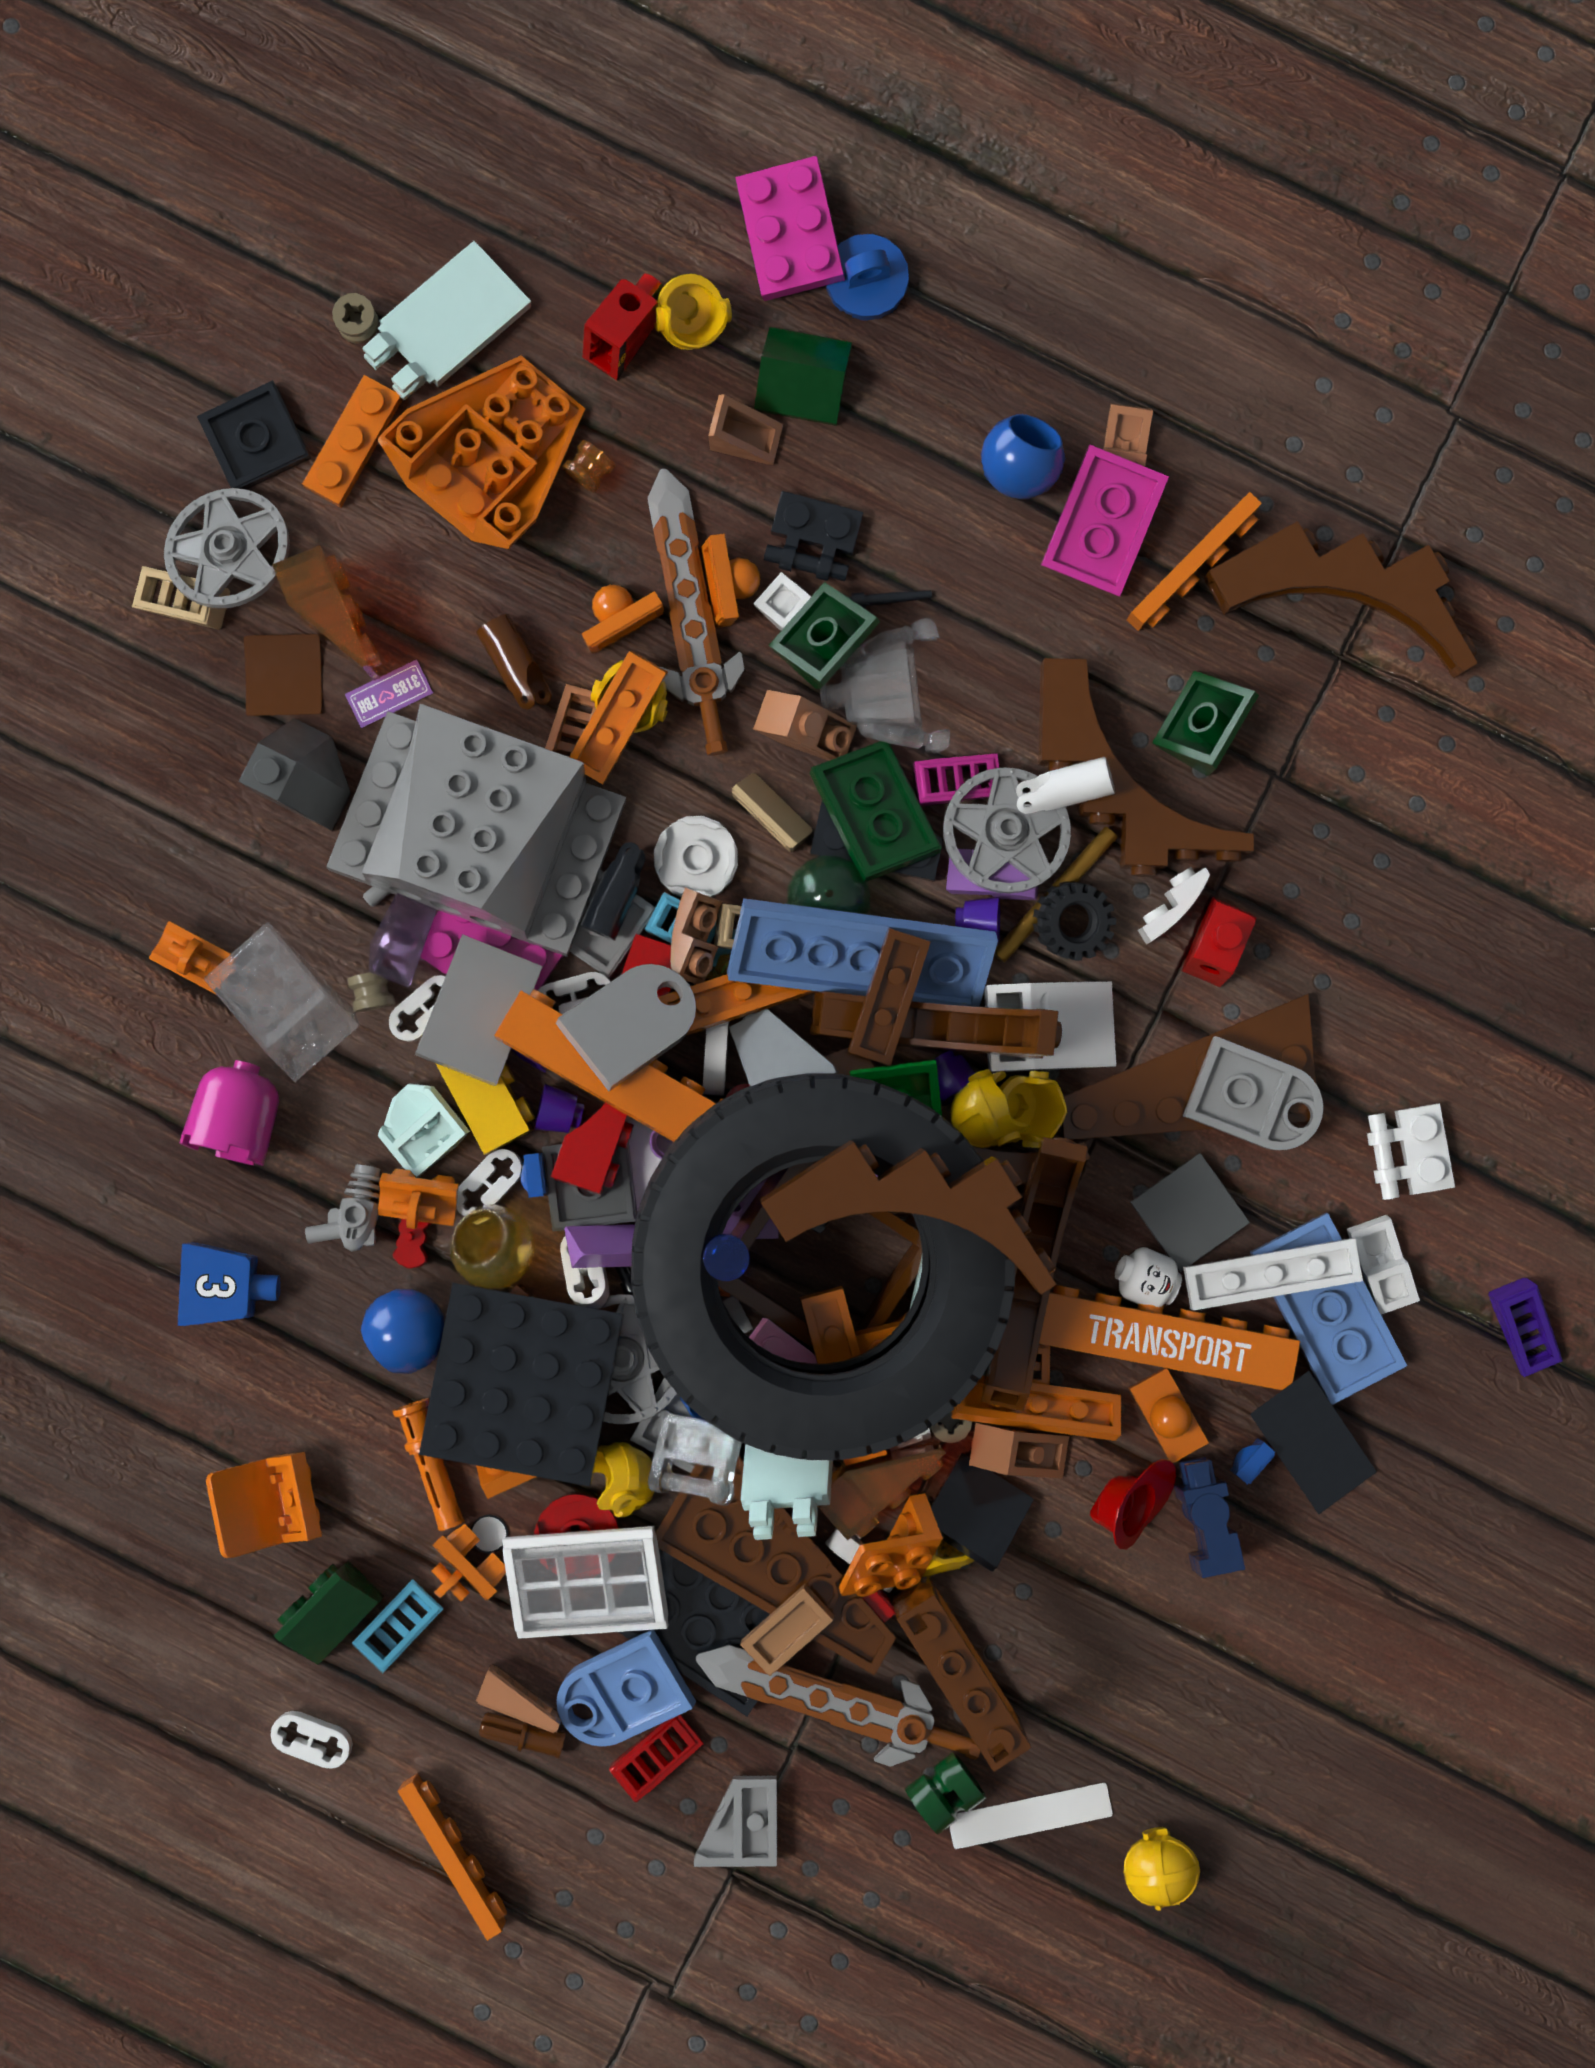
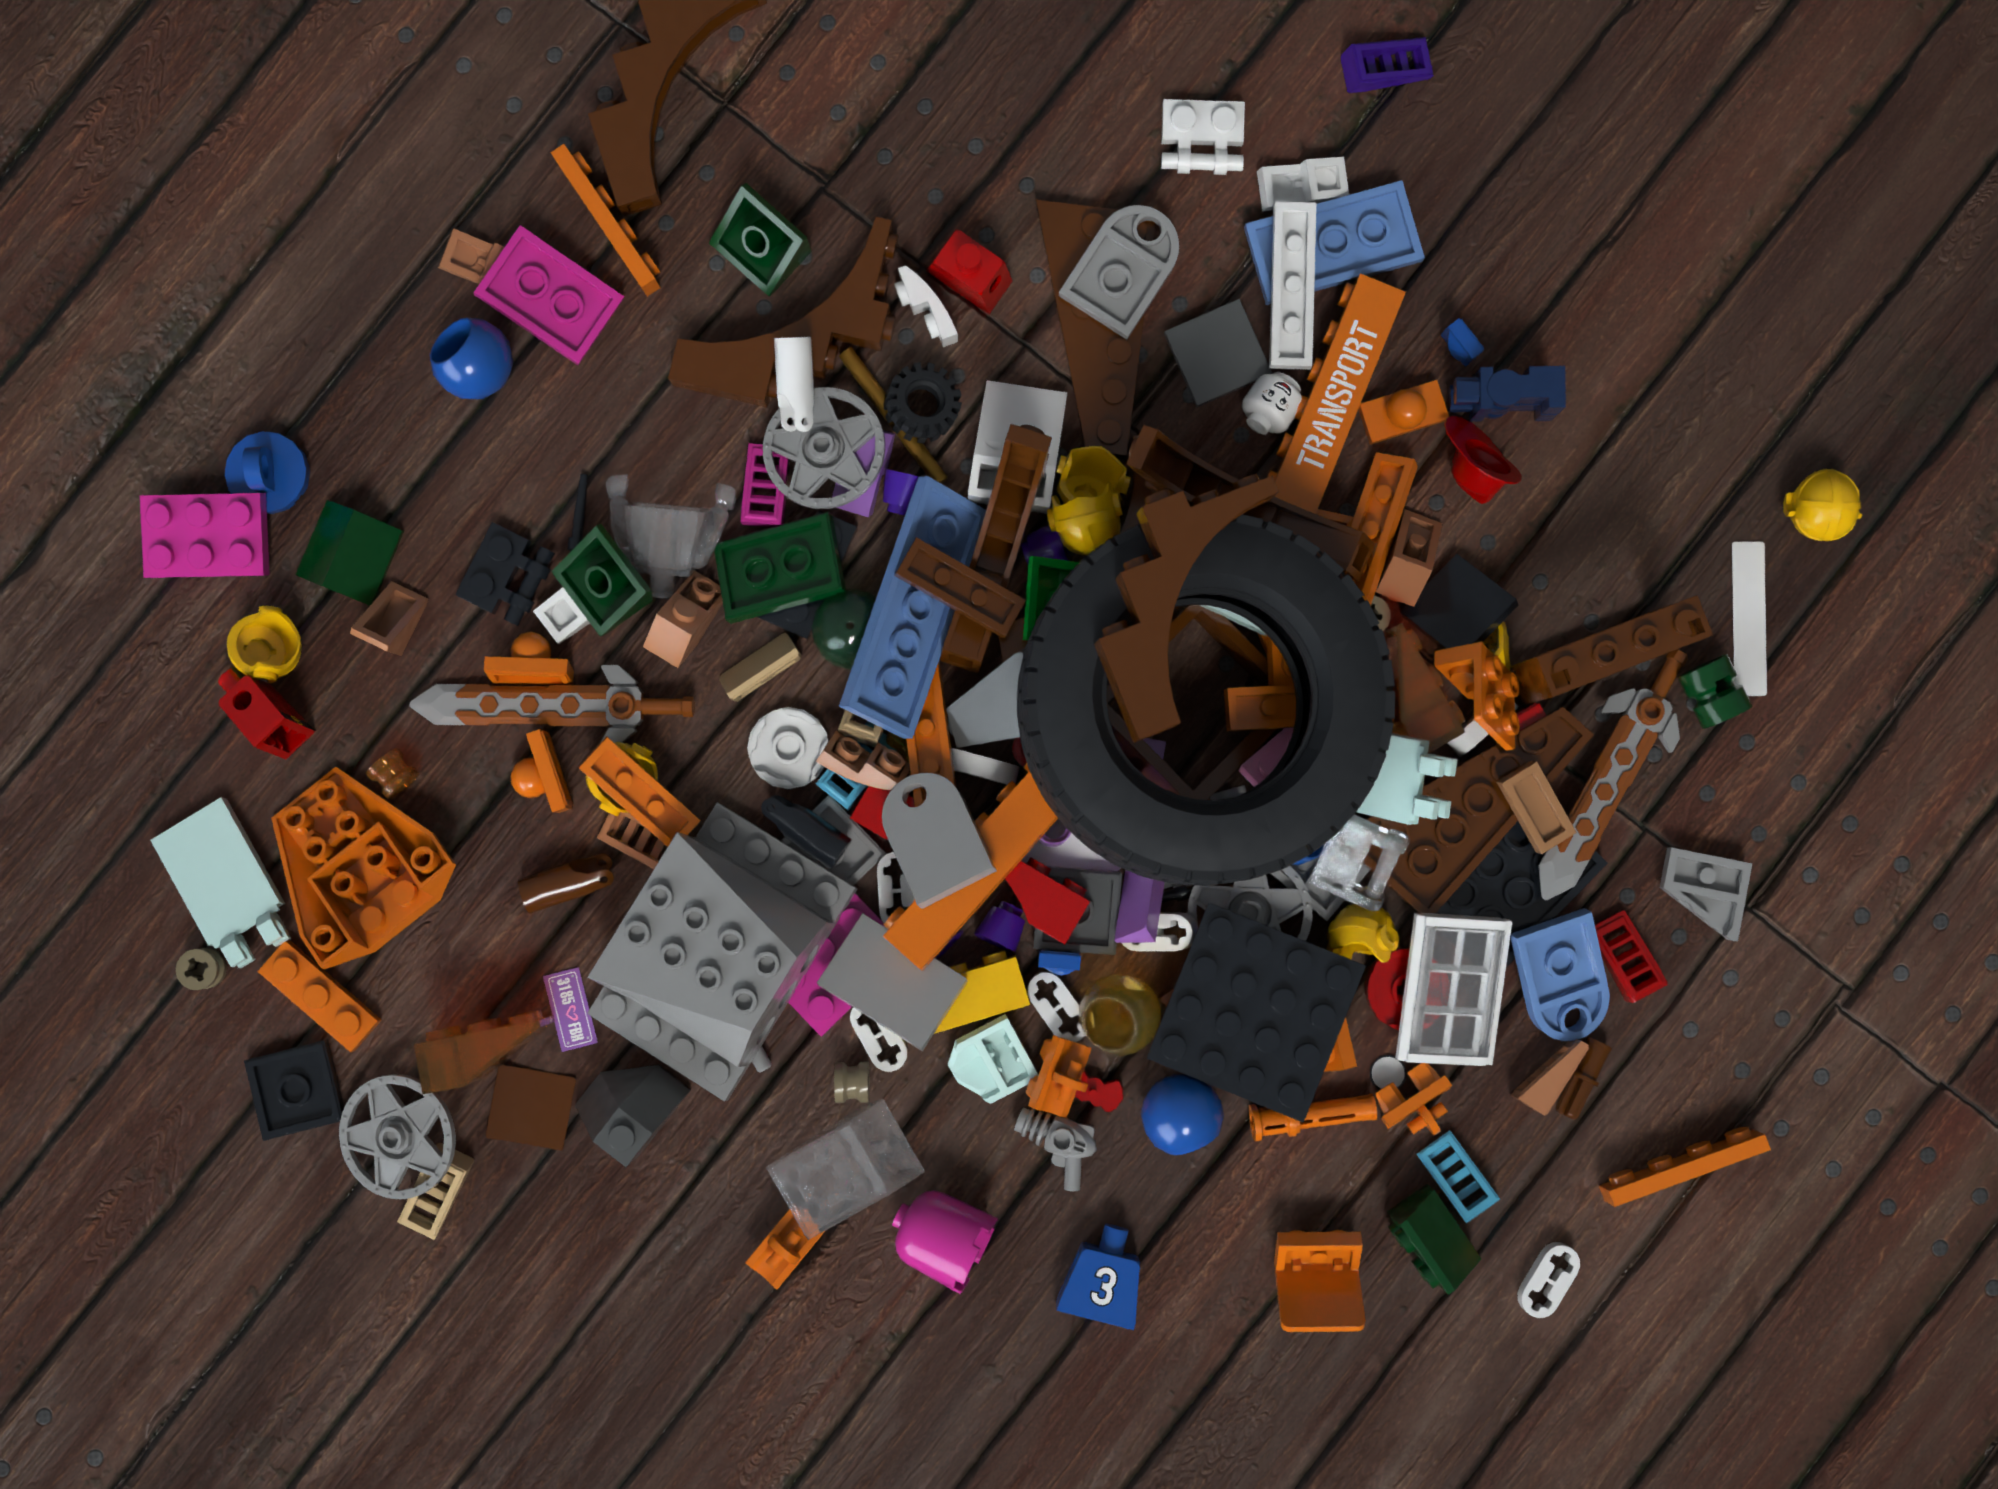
camera: 80 degrees left, 0 degrees up
(400, 940) = (809, 1044): clear purple slope -> none
(726, 1257) = (1182, 785): clear blue tile -> none
(1313, 1442) = (1456, 282): black sticker -> none

